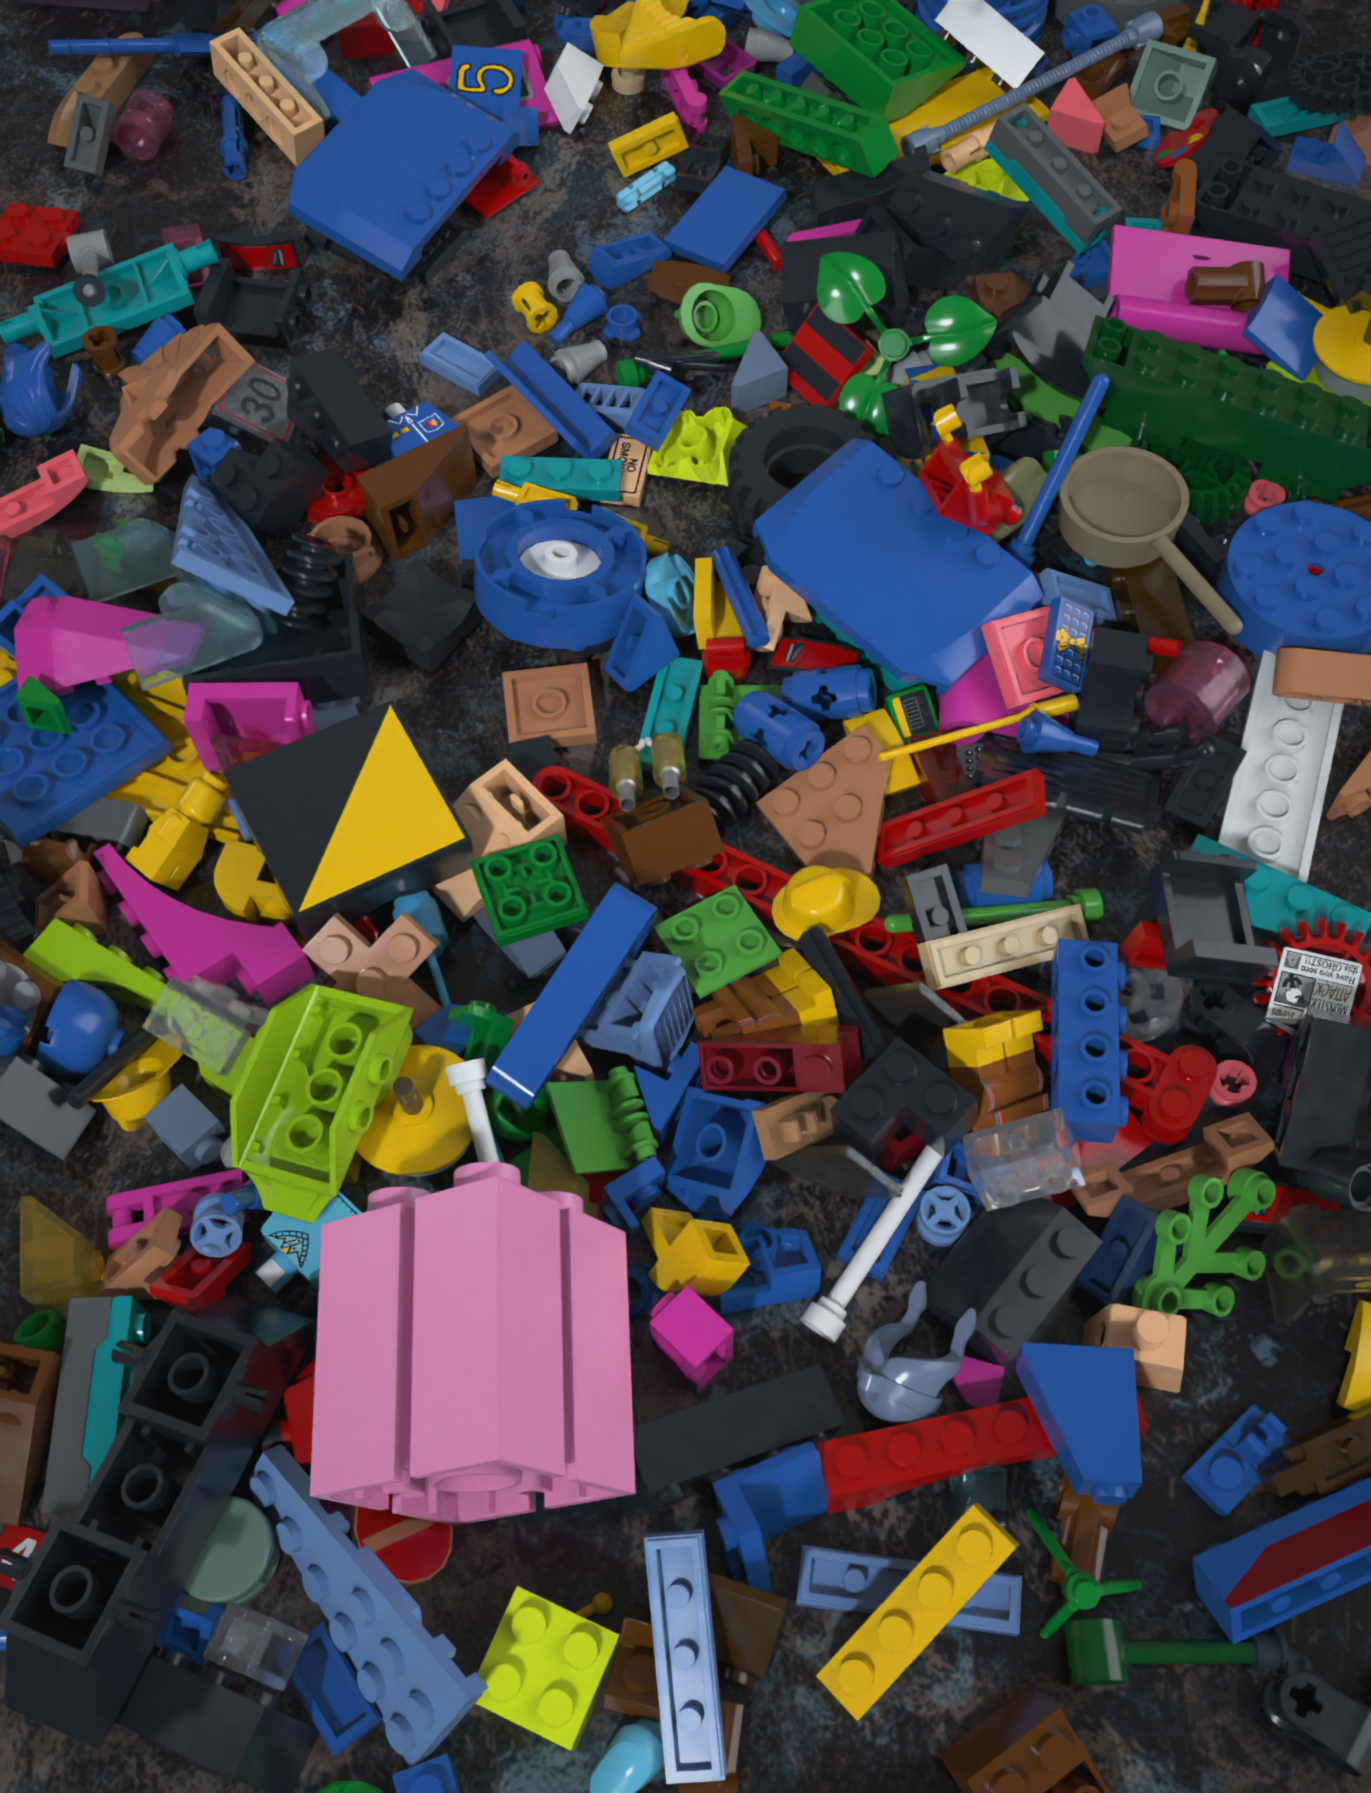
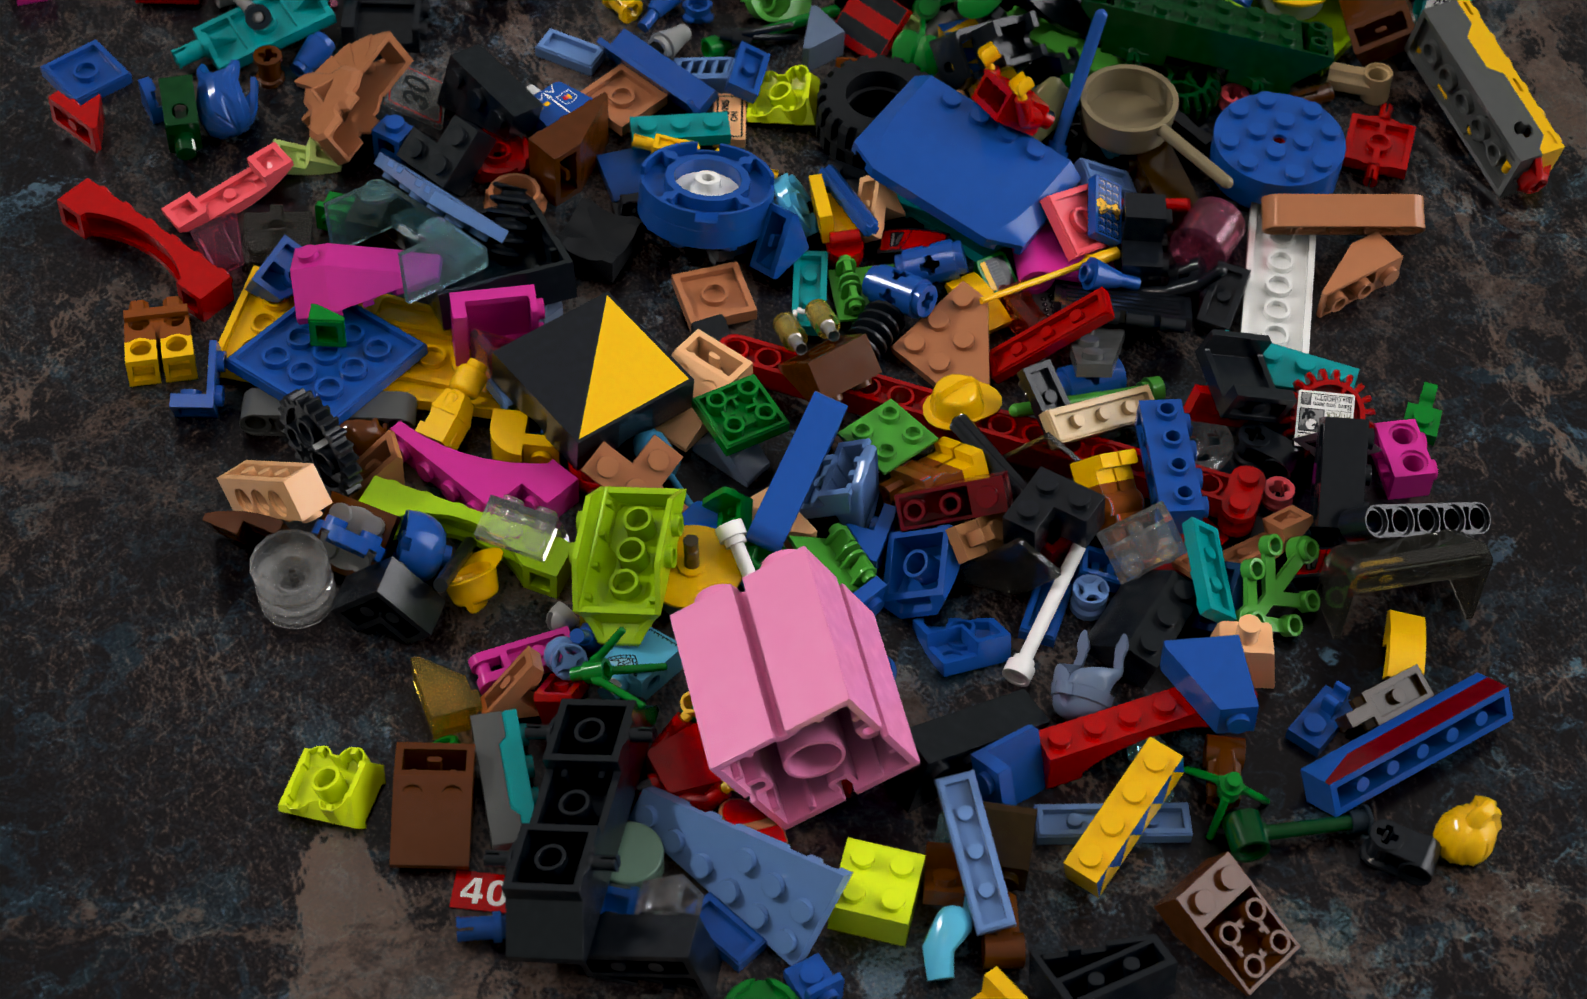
camera: 15 degrees left, 10 degrees down
(187, 1128) = (517, 606): sand blue brick -> none
(248, 1260) = (599, 670): none -> green plant
(690, 1337) = (930, 682): dark pink brick -> none
(693, 1252) = (922, 638): yellow brick -> none
(978, 1382) = (1130, 690): dark pink tile -> none
(1110, 1220) = (1208, 571): none -> teal plate

